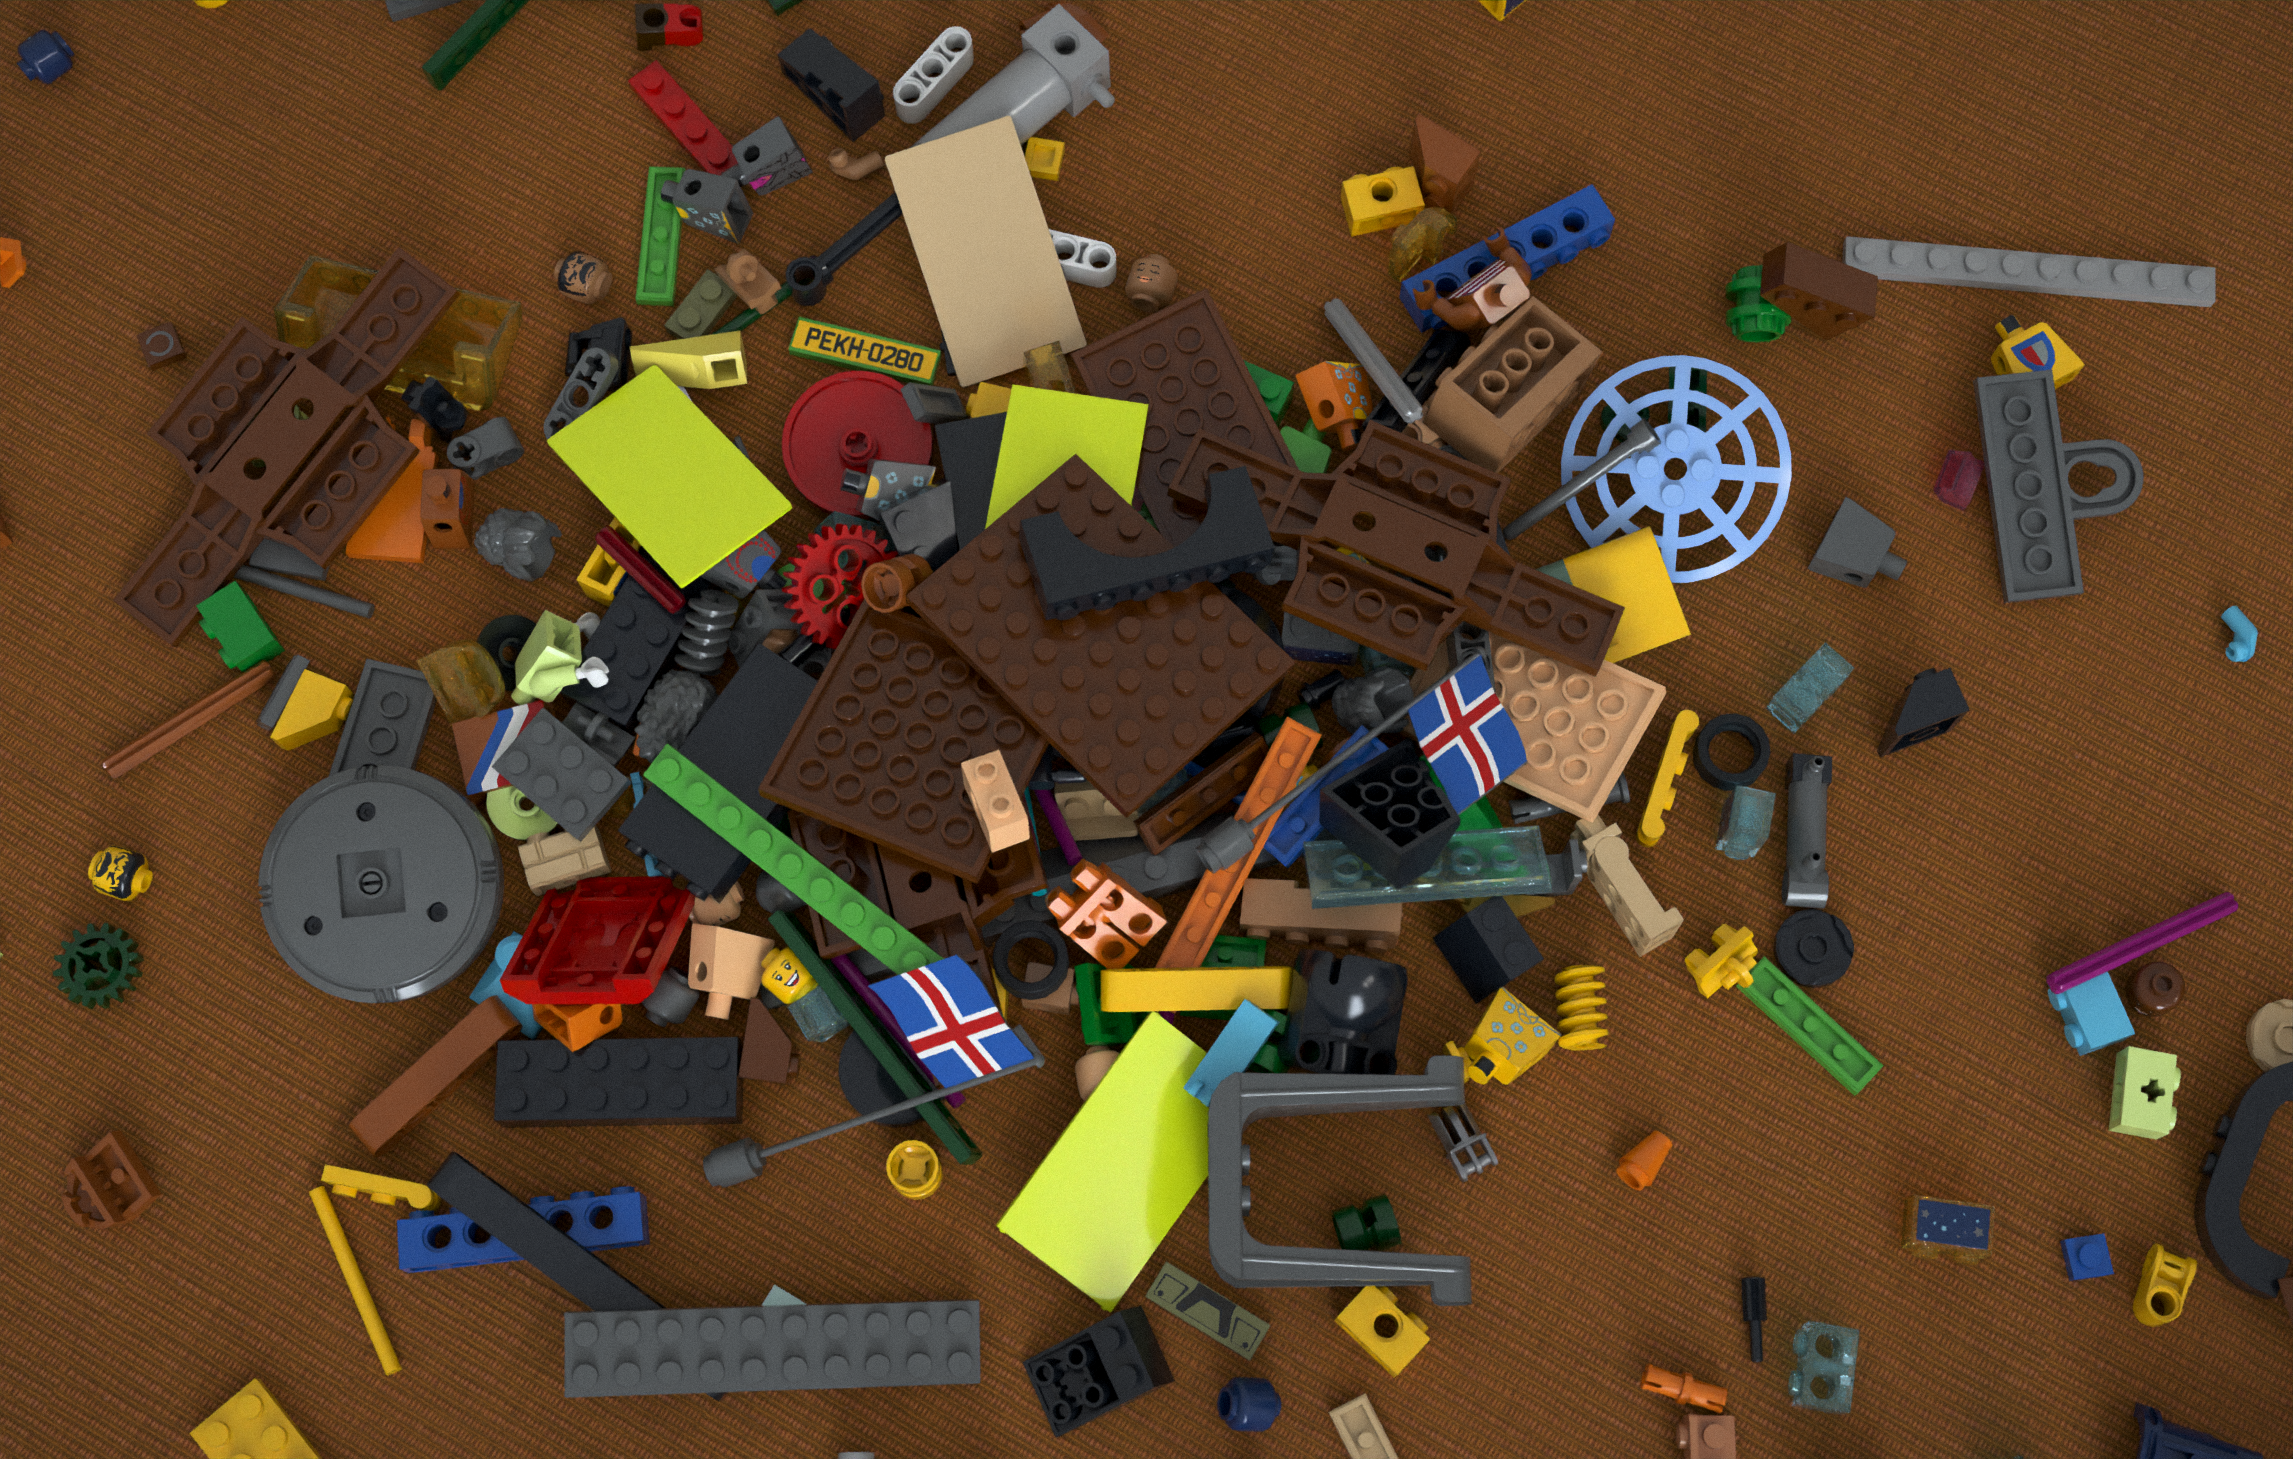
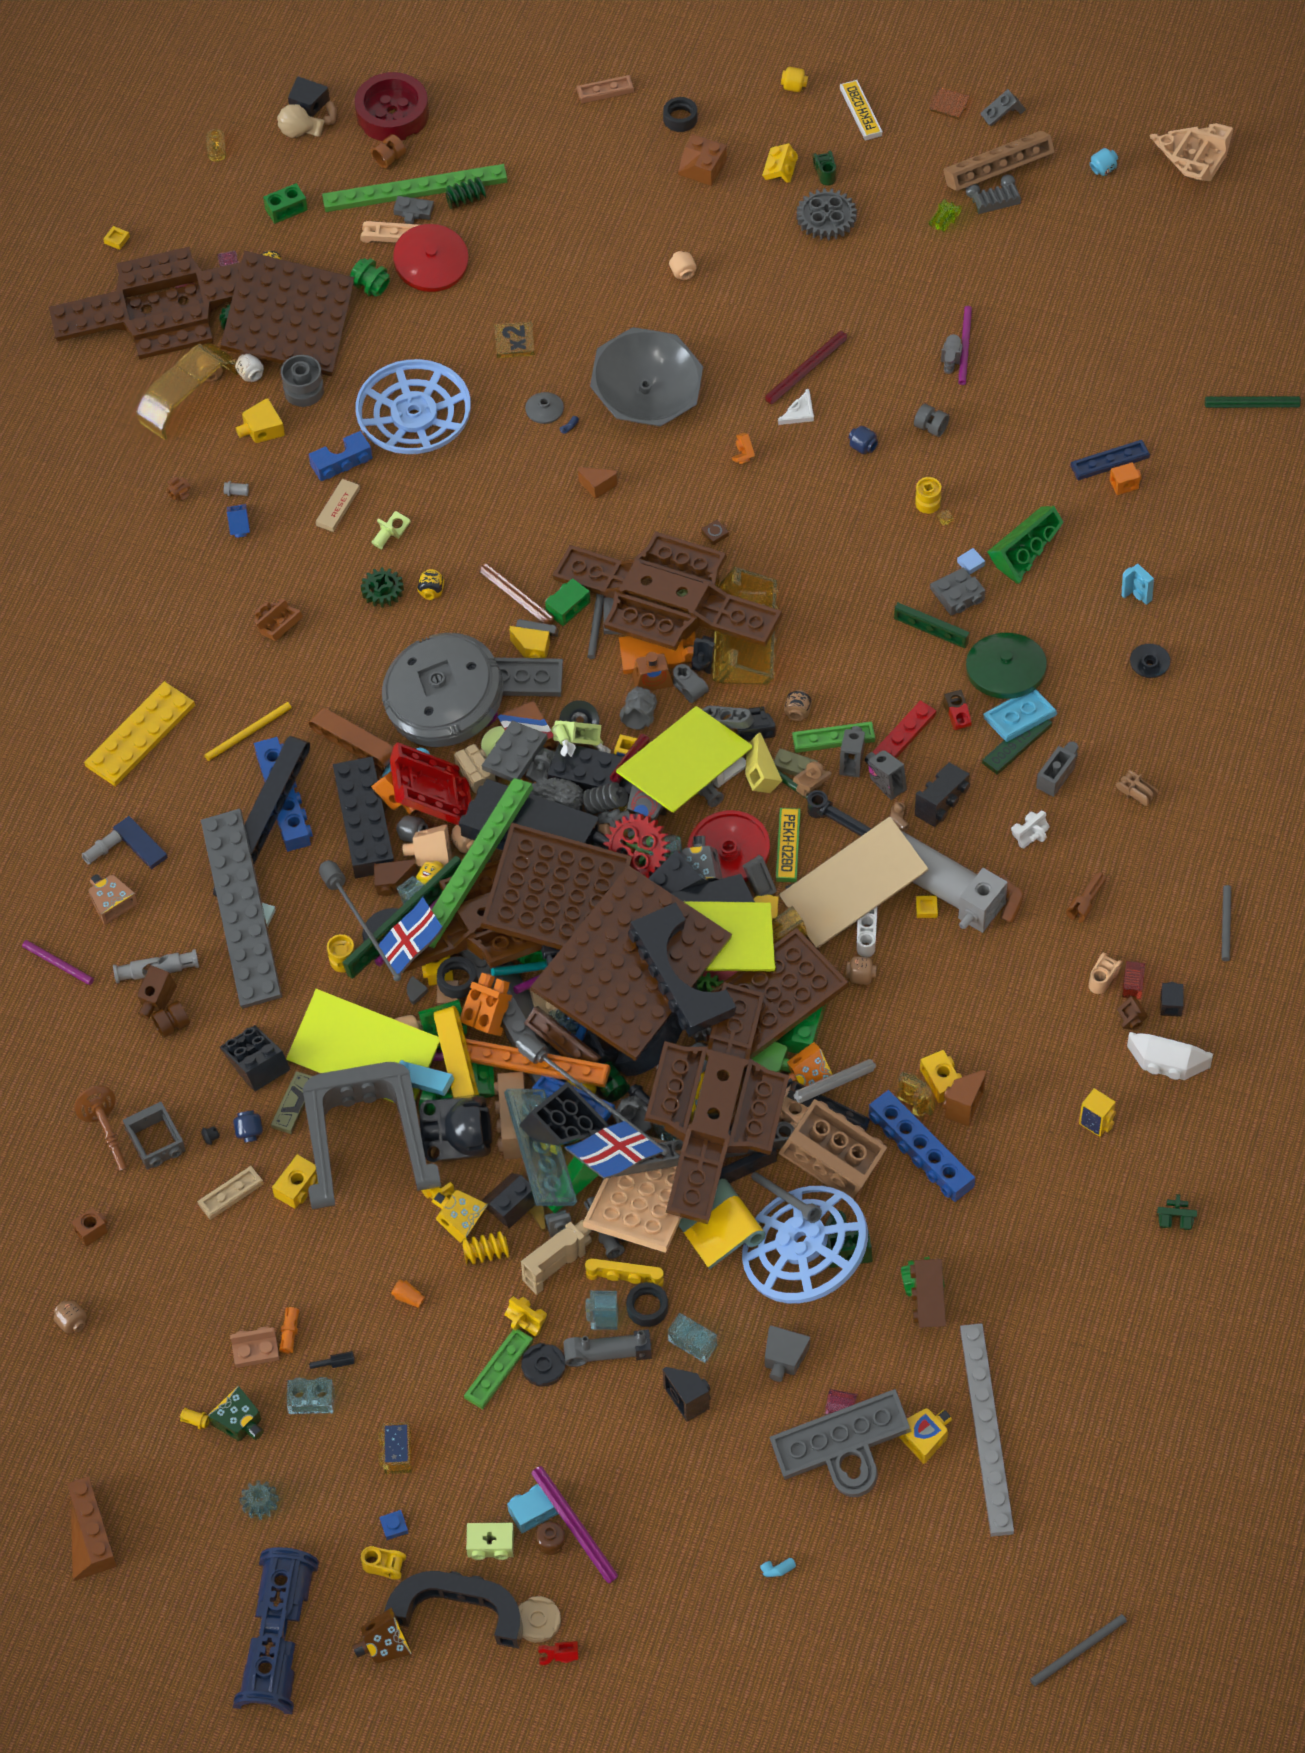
camera: 80 degrees right, 15 degrees down
(383, 1189) = (294, 717): yellow plate -> none
(463, 679) = (557, 699): clear yellow slope -> none
(890, 581) = (639, 860): dark orange wheel -> none
(939, 60) = (967, 849): white beam -> none
(995, 800) = (521, 921): light nougat brick -> none
(1376, 1214) = (347, 1163): dark green wheel -> none
(1463, 1141) = (404, 1201): flat silver arm -> none
(1487, 294) = (886, 1128): dark orange torso -> none

